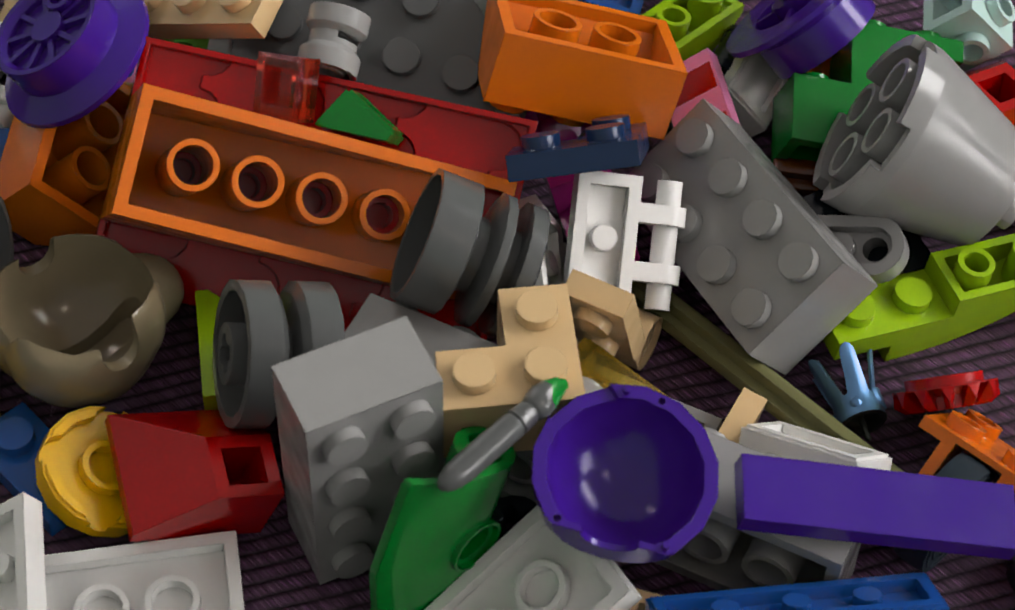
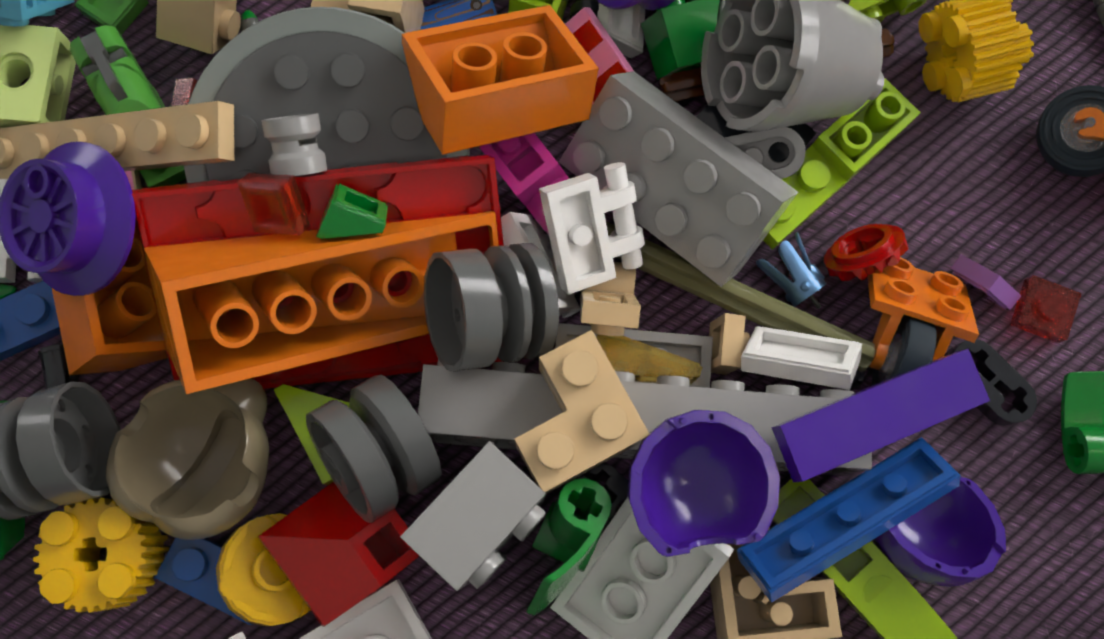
camera: 25 degrees left, 25 degrees up
(473, 459) = (619, 463): dark grey piece -> none
(603, 146) = (558, 175): dark blue plate -> none

